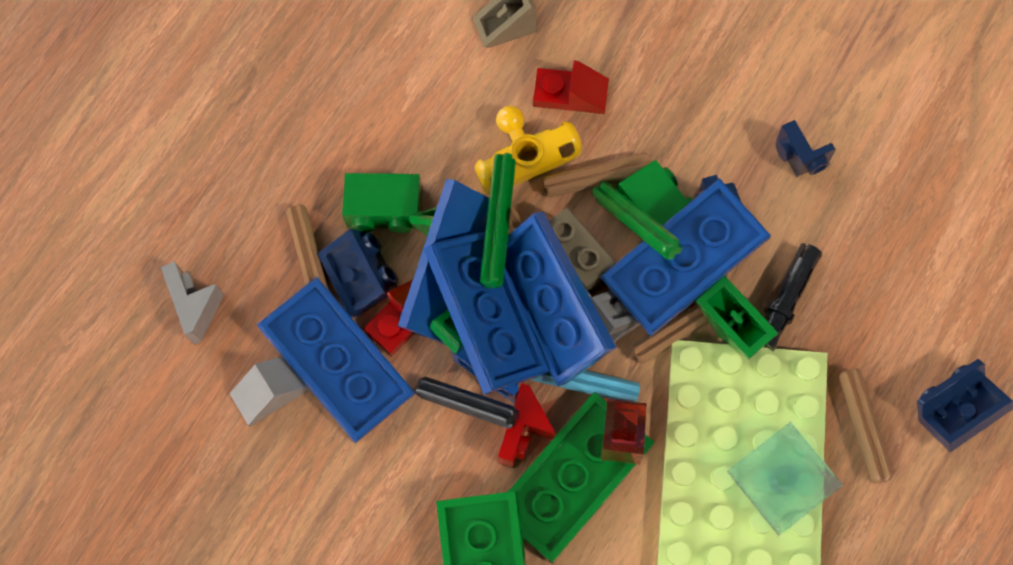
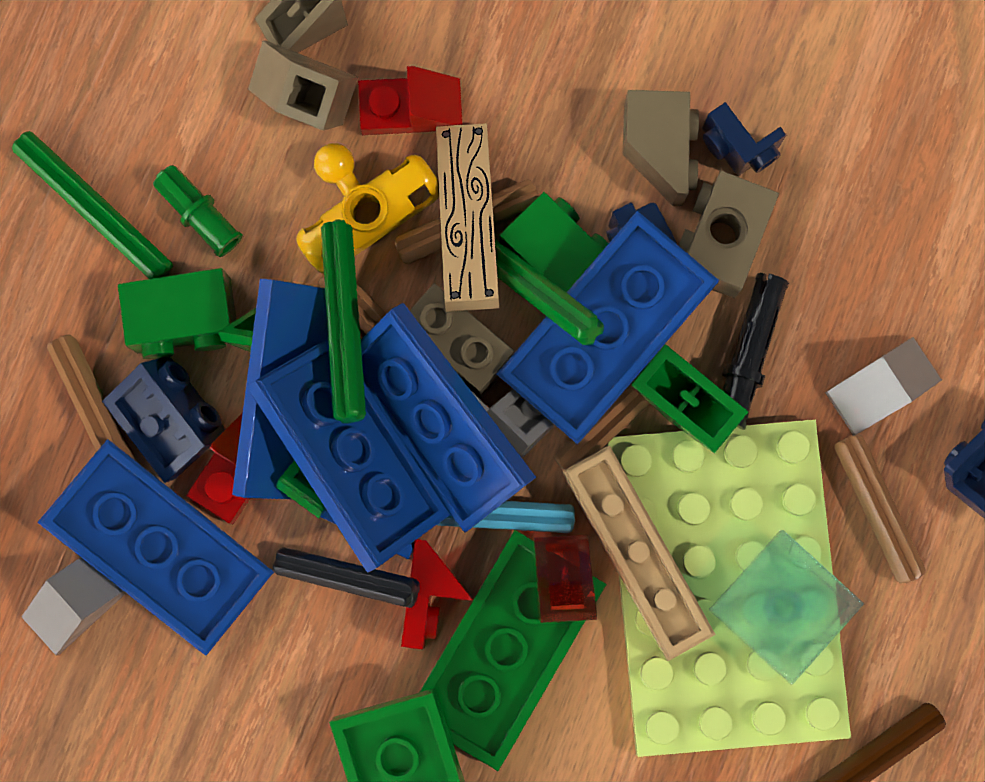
camera: 15 degrees left, 10 degrees up
(335, 121) = (91, 206): none -> green axle
(408, 136) = (197, 210): none -> green axle
(498, 64) = (302, 87): none -> dark tan slope
(597, 169) = (466, 218): none -> tan tile
(682, 423) = (638, 553): none -> tan tile
(742, 141) = (657, 140): none -> dark tan slope
(797, 197) = (747, 211): none -> dark tan brick
(881, 338) = (883, 386): none -> light grey slope

